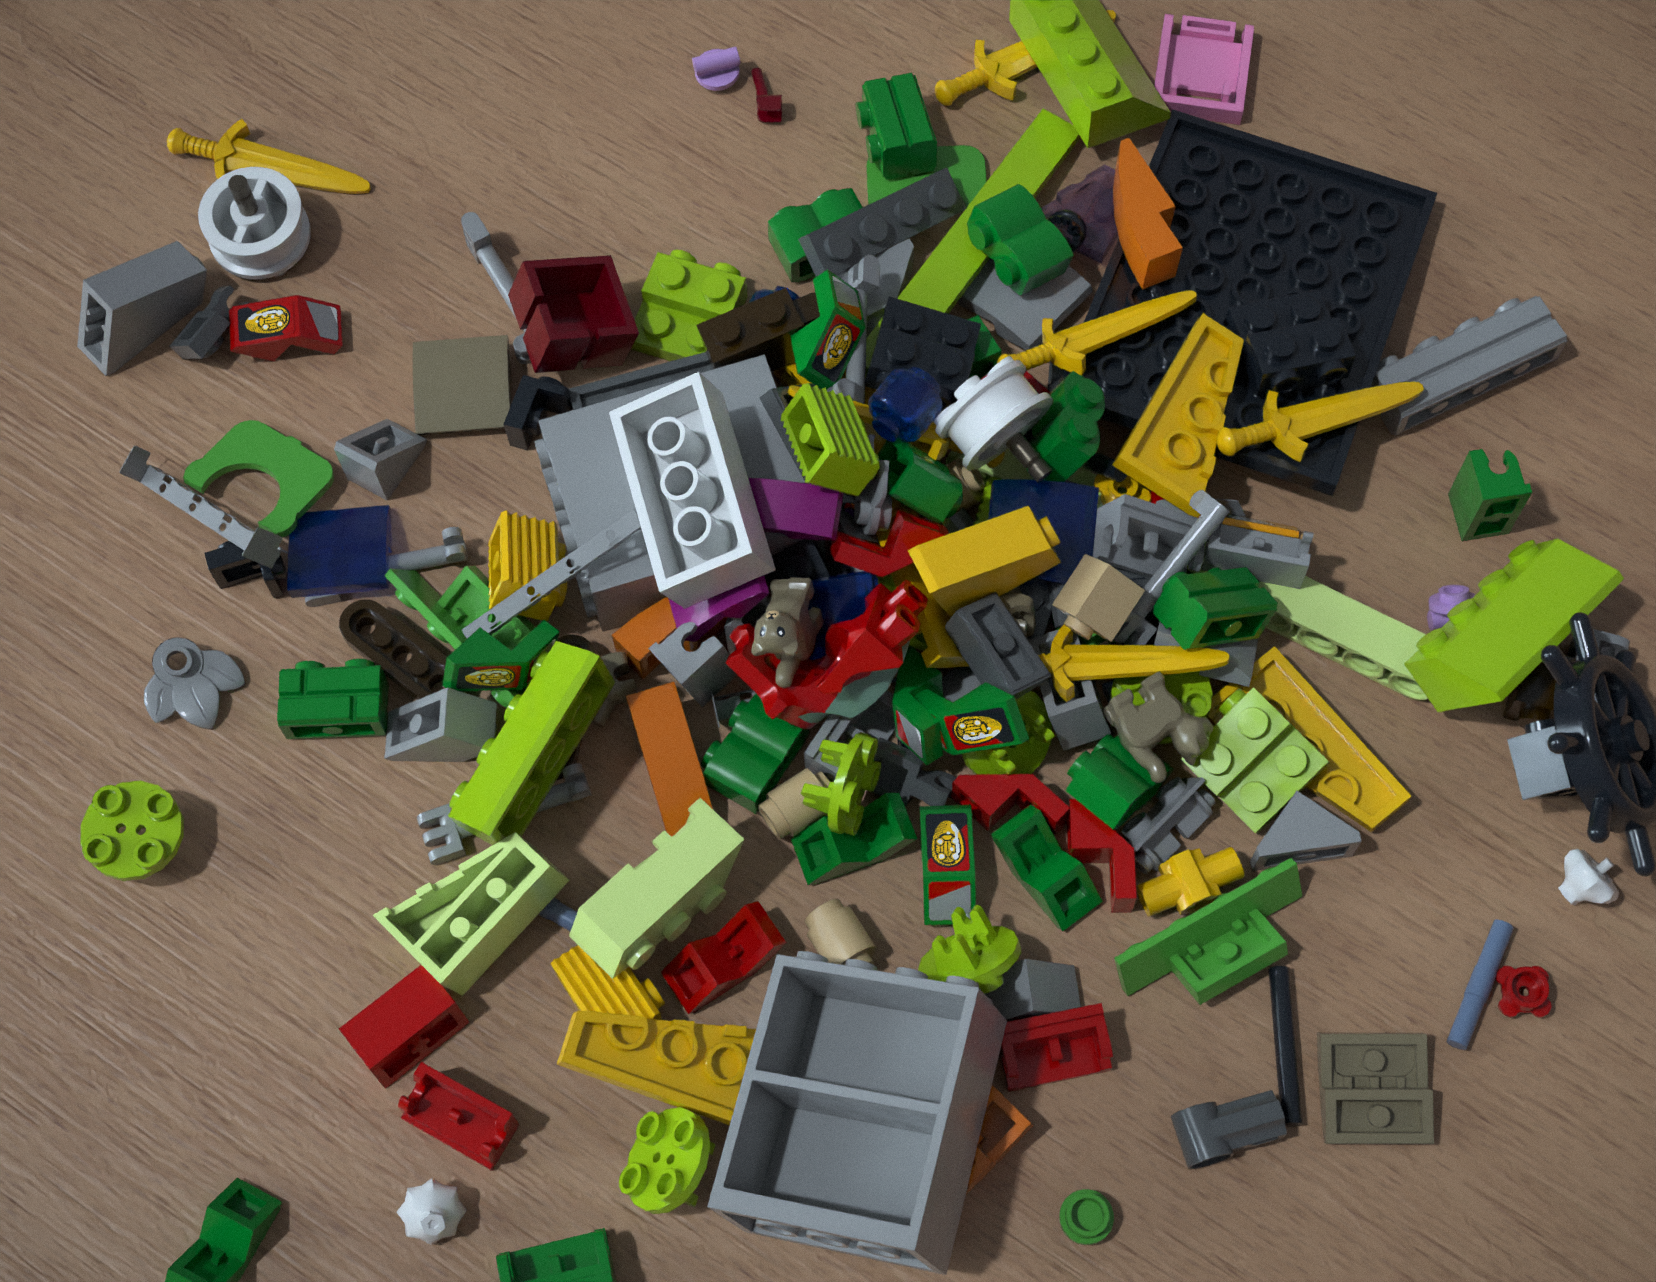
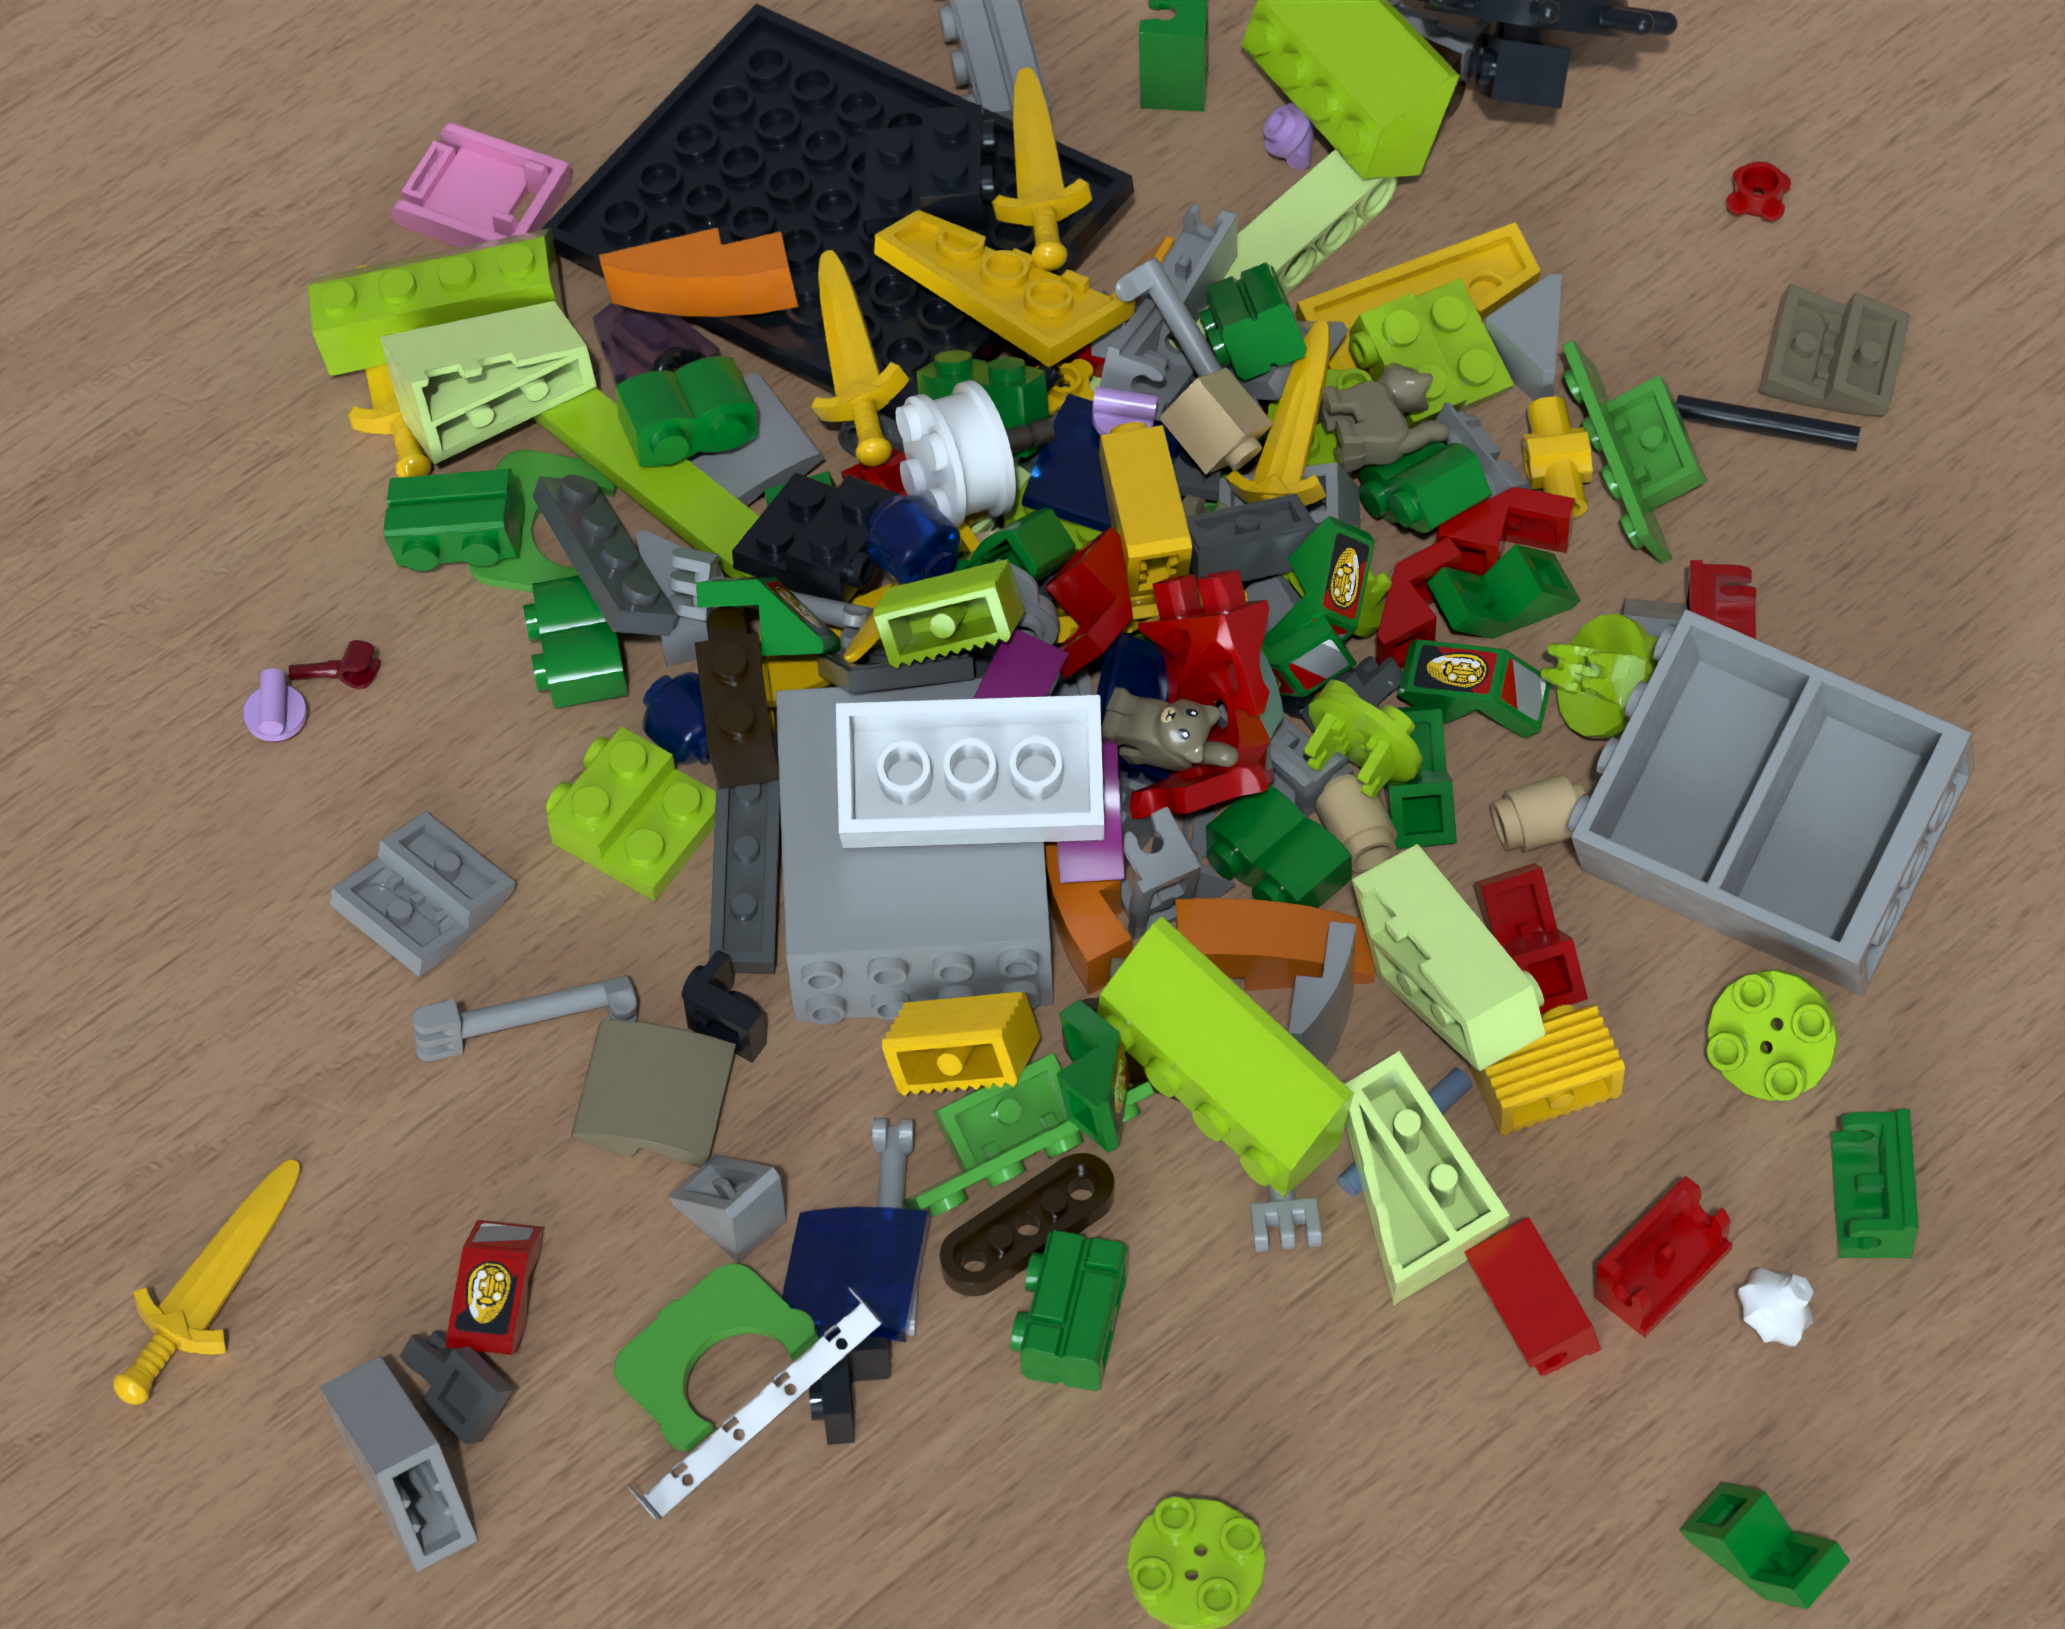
camera: 75 degrees left, 10 degrees down
(194, 687) = (998, 1487): light grey plate -> none
(254, 223) = (319, 1292): white wheel -> none
(440, 728) = (1149, 1191): light grey slope -> none
(557, 574) = (1017, 979): light grey piece -> none
(573, 313) = (613, 920): dark red piece -> none
(592, 200) = (422, 893): none -> light grey slope
(617, 815) = (1324, 1003): none -> light grey slope
(662, 1059) = (1661, 993): yellow wing -> none
(1011, 99) = (485, 374): none -> yellowish green wedge
(1079, 526) = (1118, 407): none -> lavender plate
(1086, 1217) = (1922, 649): bright green plate -> none
(1214, 1132) = (1853, 502): dark grey piece -> none
(1480, 984) = (1740, 229): sand blue piece -> none
(1587, 879) = (1650, 99): white piece -> none

